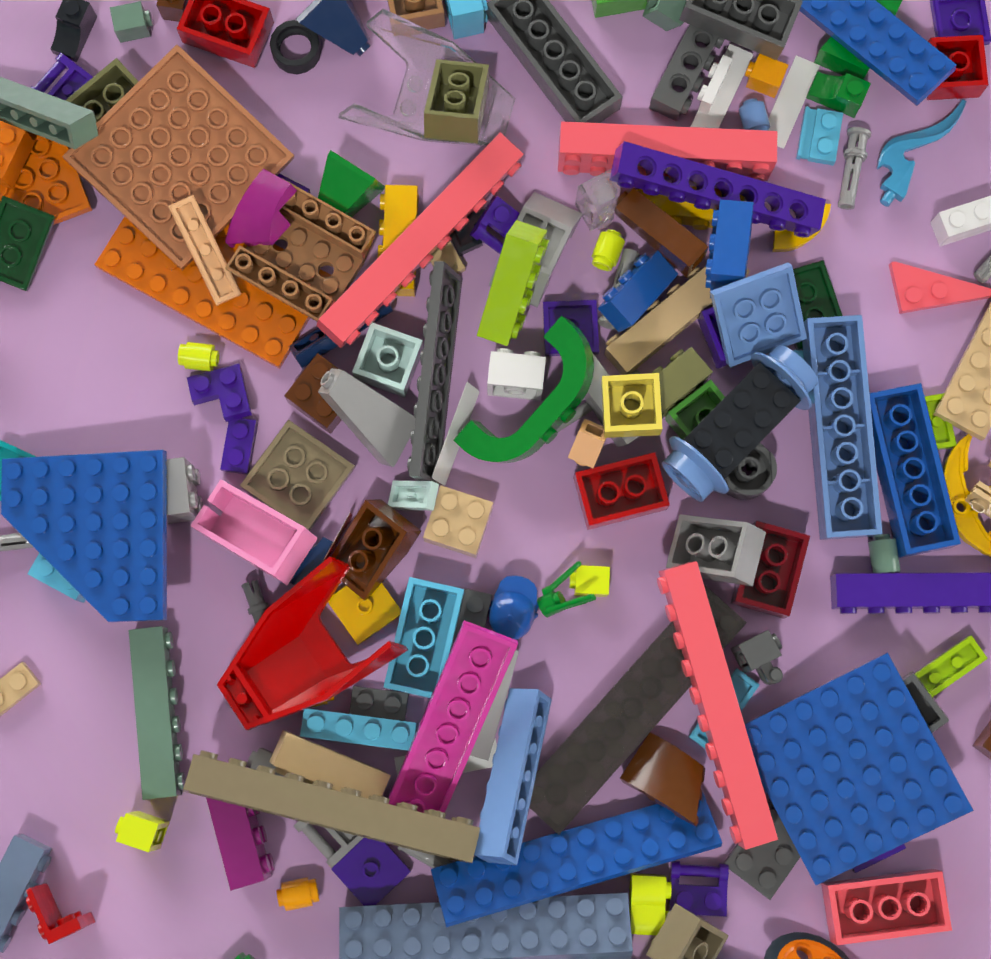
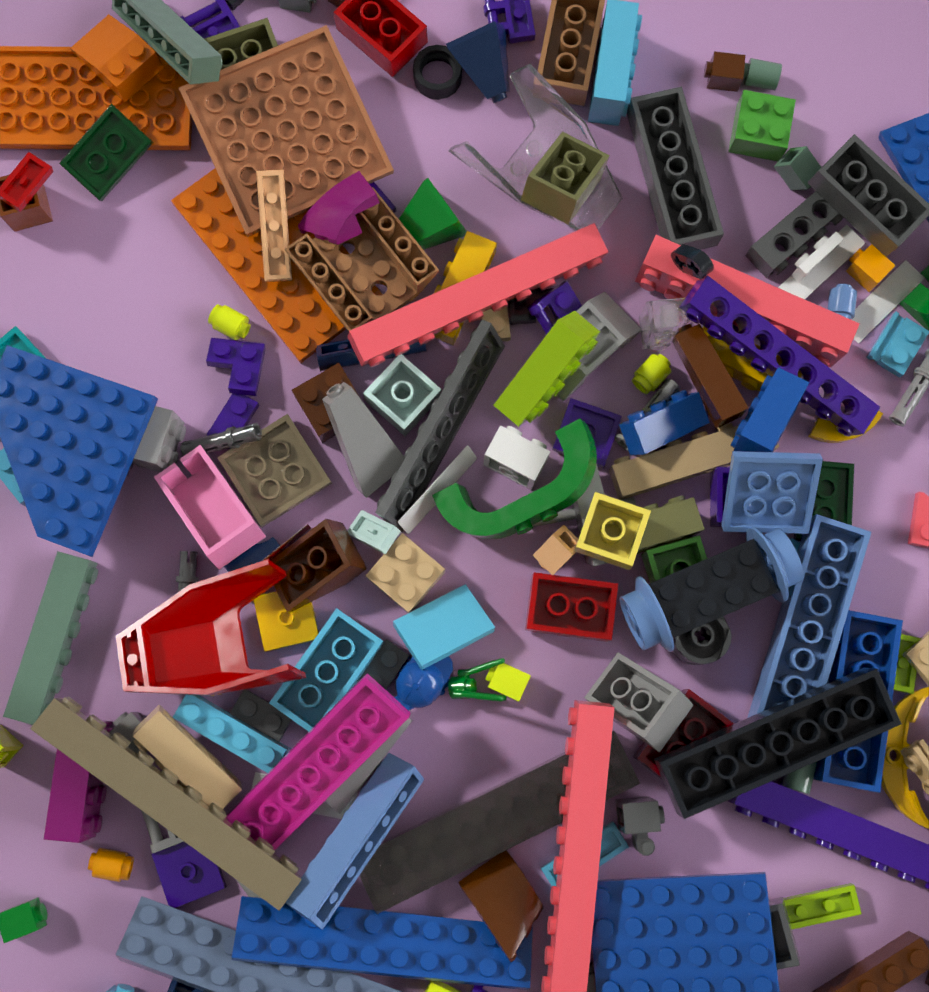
camera: 20 degrees right, 0 degrees up
(245, 462) = (231, 438): none -> dark grey pin
(512, 555) = (443, 626): none -> medium azure tile
(604, 133) = (692, 261): none -> black beam
(851, 534) = (777, 742): none -> black brick

